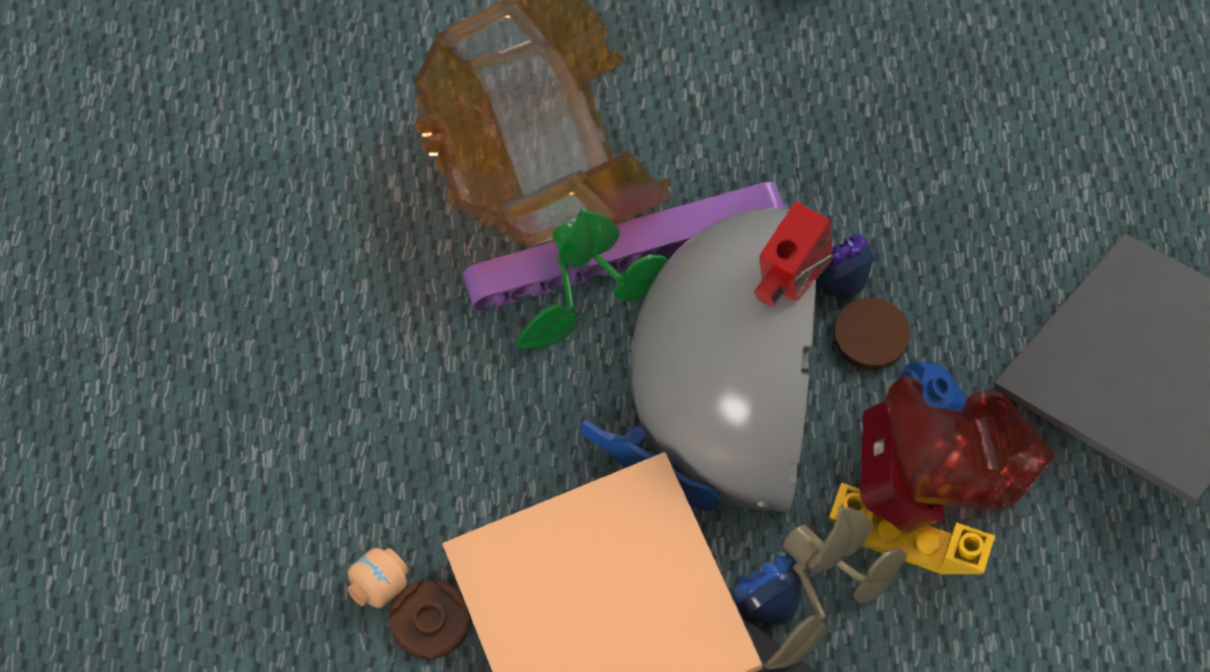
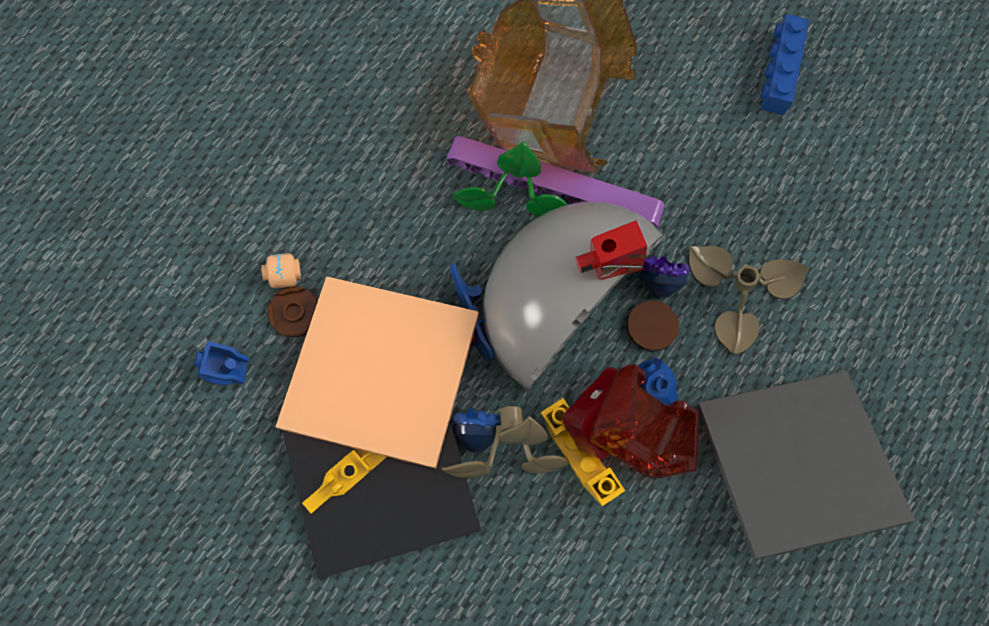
camera: 30 degrees right, 10 degrees up
(972, 176) = (714, 263): none -> dark tan plant

